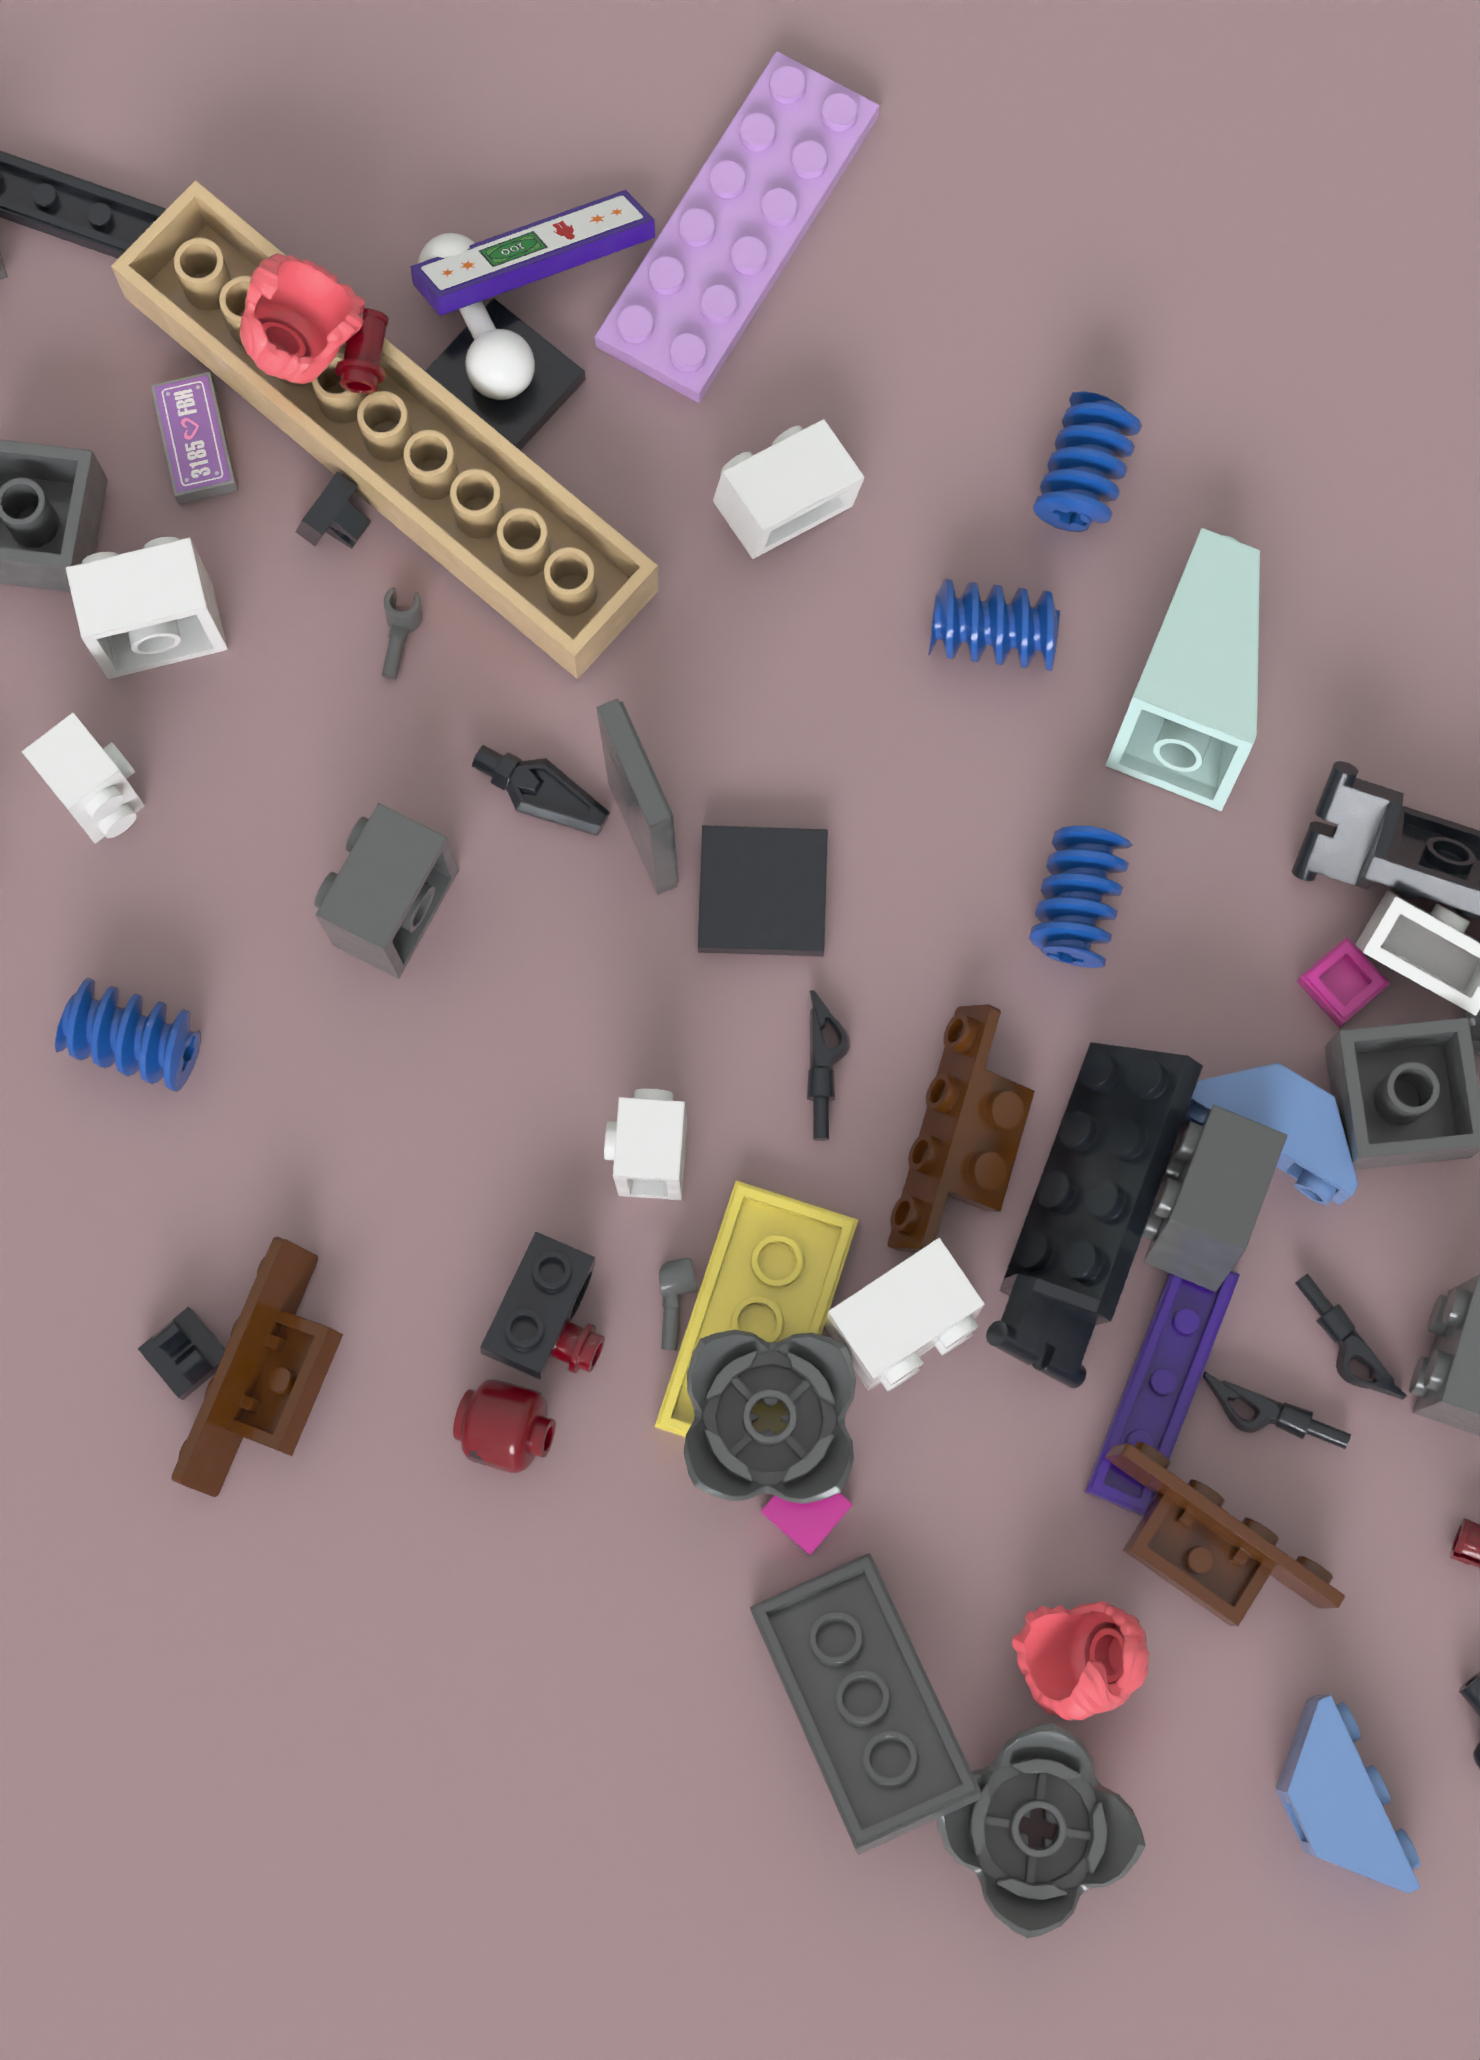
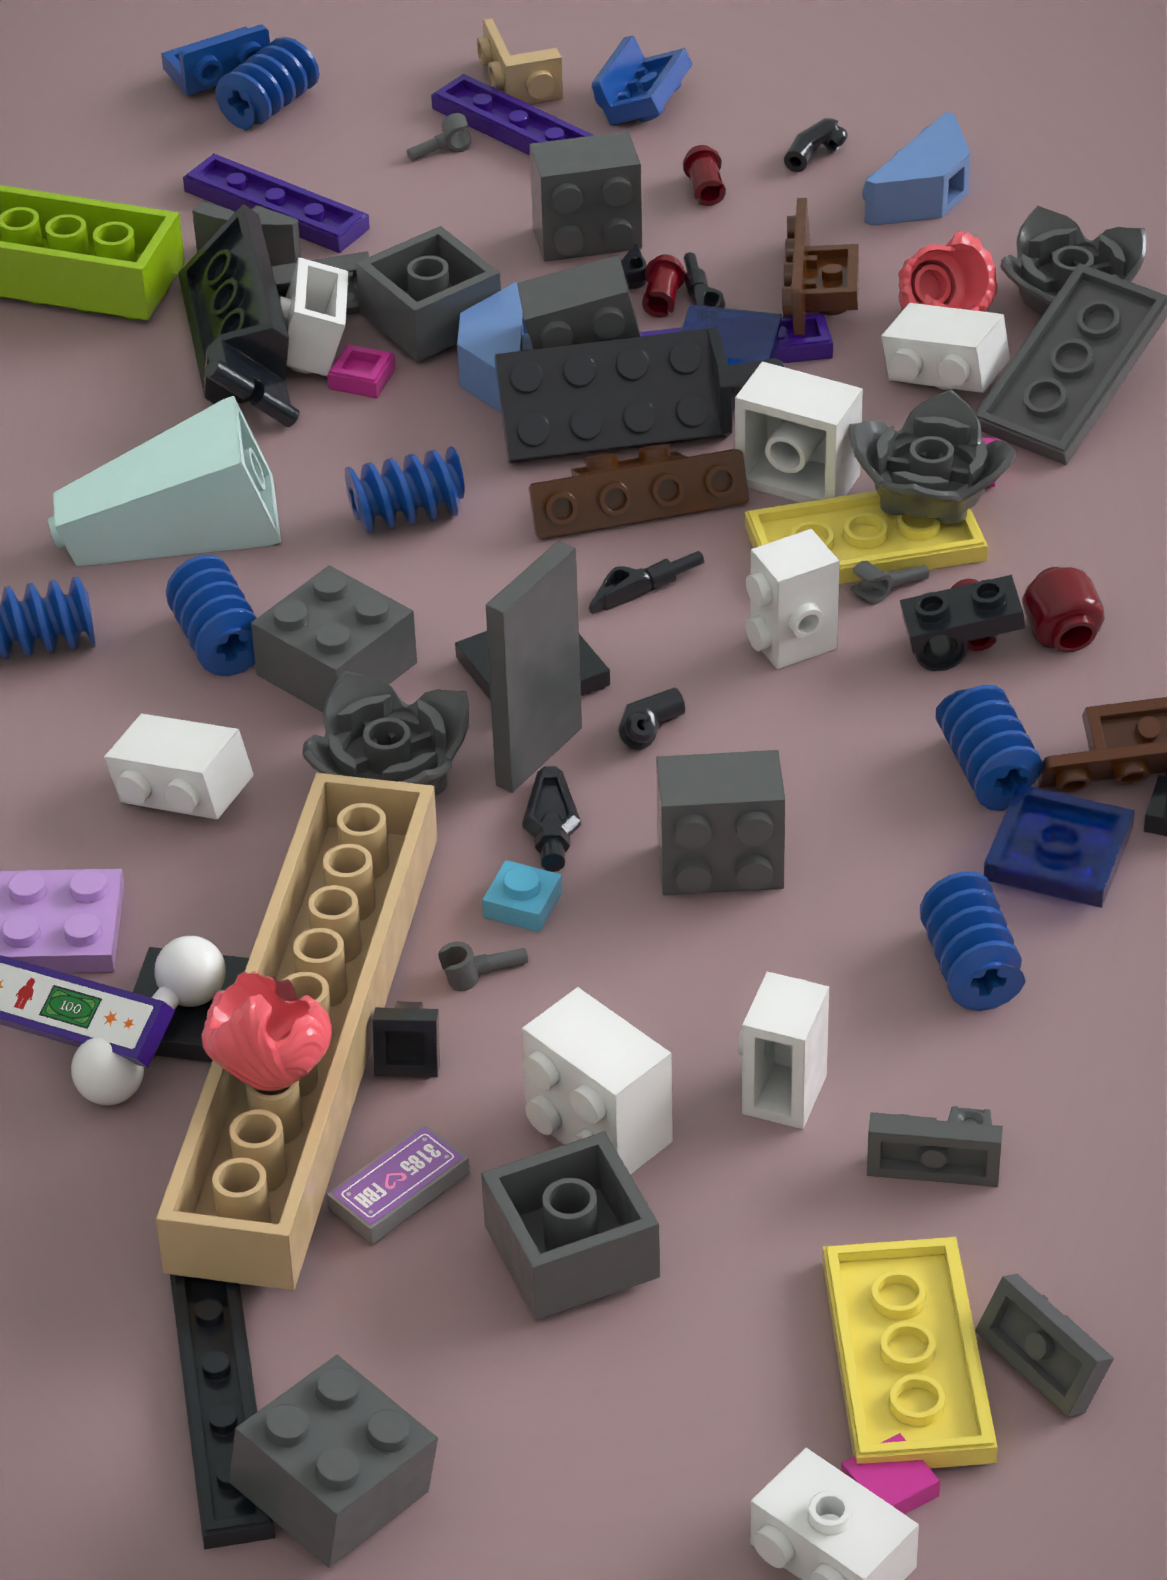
camera: 120 degrees left, 35 degrees down
(201, 1201) = (1059, 845): none -> clear blue plate
(356, 1219) = (989, 743): none -> blue piece
(458, 711) = (522, 896): none -> medium azure plate
(618, 943) = (643, 716): none -> black arm
(696, 631) = (385, 739): none -> dark grey brick
(884, 710) = (329, 629): none -> dark grey brick
(981, 1588) = (946, 347): none -> white brick
(1139, 1366) = (744, 333): none -> clear blue piece
(1304, 1374) = (664, 277): none -> dark red pin

